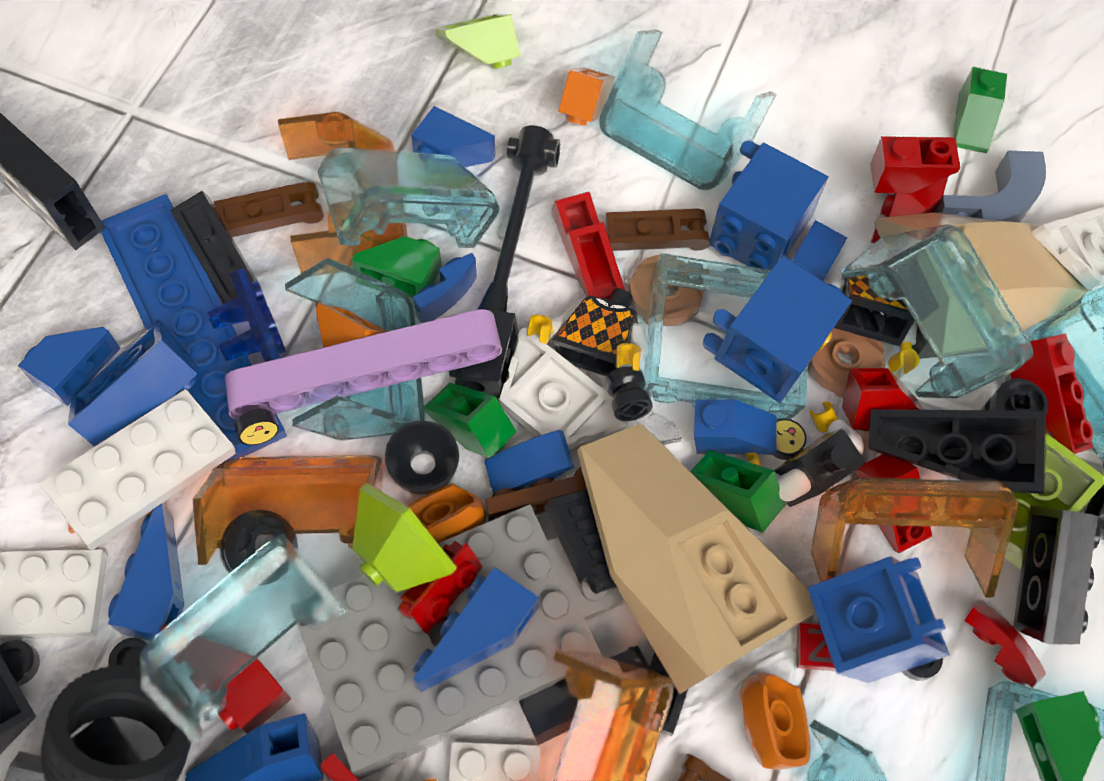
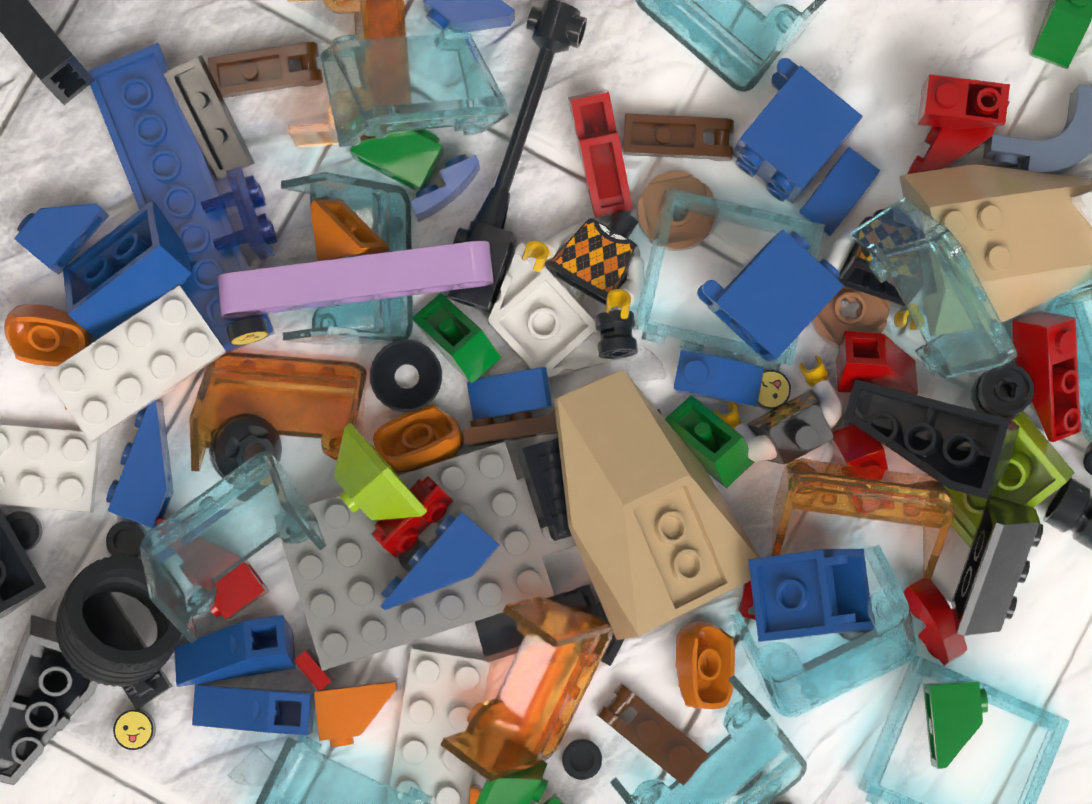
camera: 10 degrees right, 20 degrees up
(40, 451) = (43, 334): none -> orange piece
(923, 705) = (802, 687): none -> clear light blue windscreen

